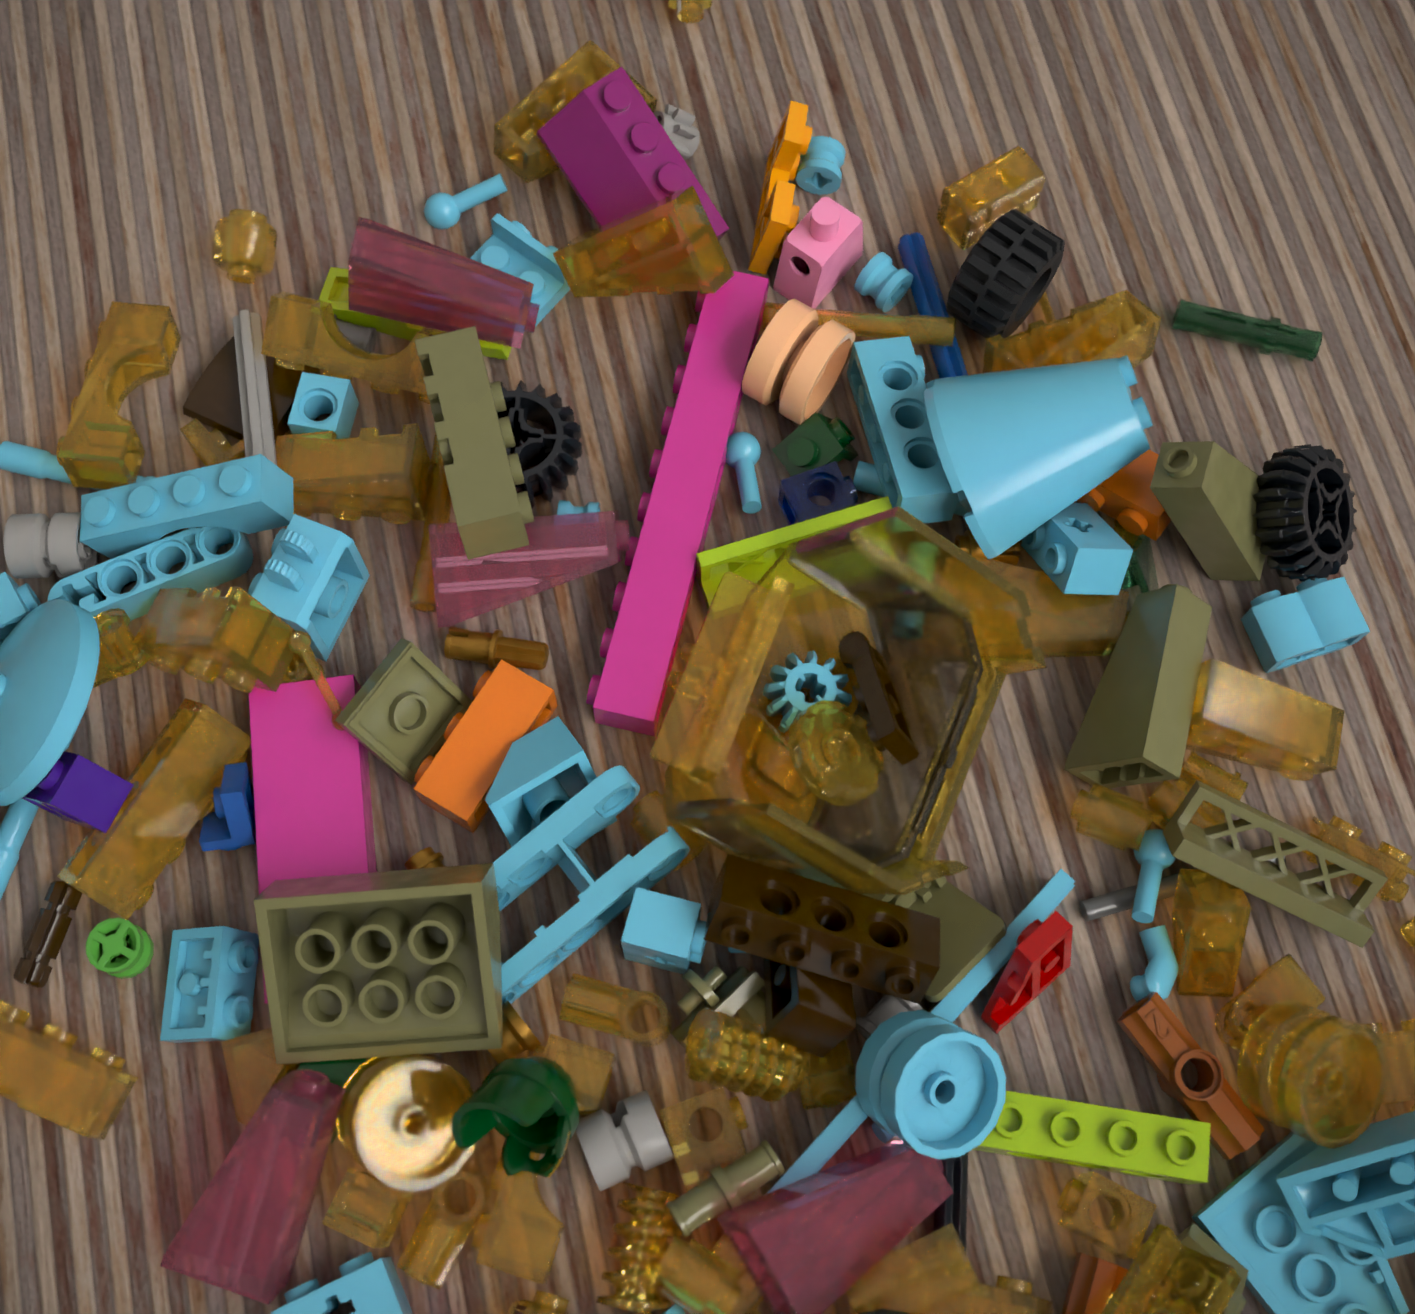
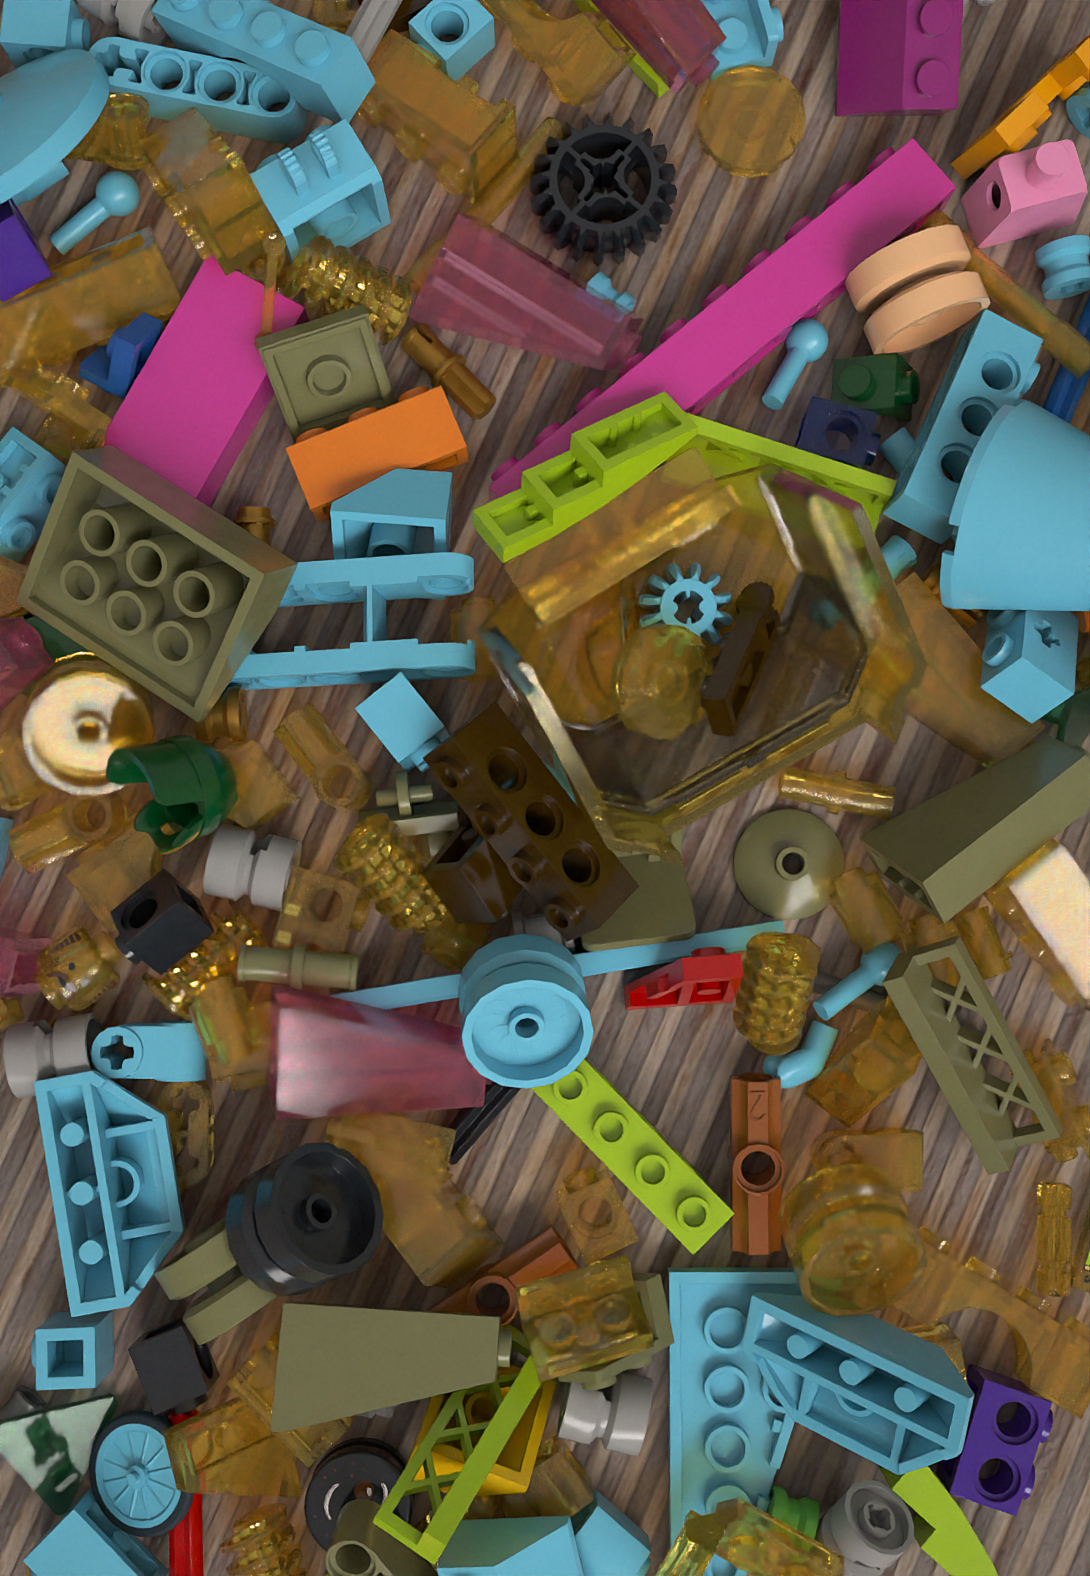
camera: 35 degrees right, 15 degrees up
(137, 696) = (115, 195): none -> medium azure bar
(218, 885) = (71, 420): none -> clear yellow bracket
(367, 636) = (349, 282): none -> clear yellow piece
(475, 444) = (549, 162): olive wedge -> none
(584, 1241) = (160, 923): none -> black brick
(586, 334) = (751, 121): none -> clear yellow tile
(648, 250) = (860, 79): clear yellow wedge -> none
(661, 654) = (595, 470): none -> lime slope
(1010, 847) = (760, 868): none -> olive dish
(1020, 748) = (837, 792): none -> clear yellow pin
(1103, 928) = (776, 990): none -> clear yellow piece

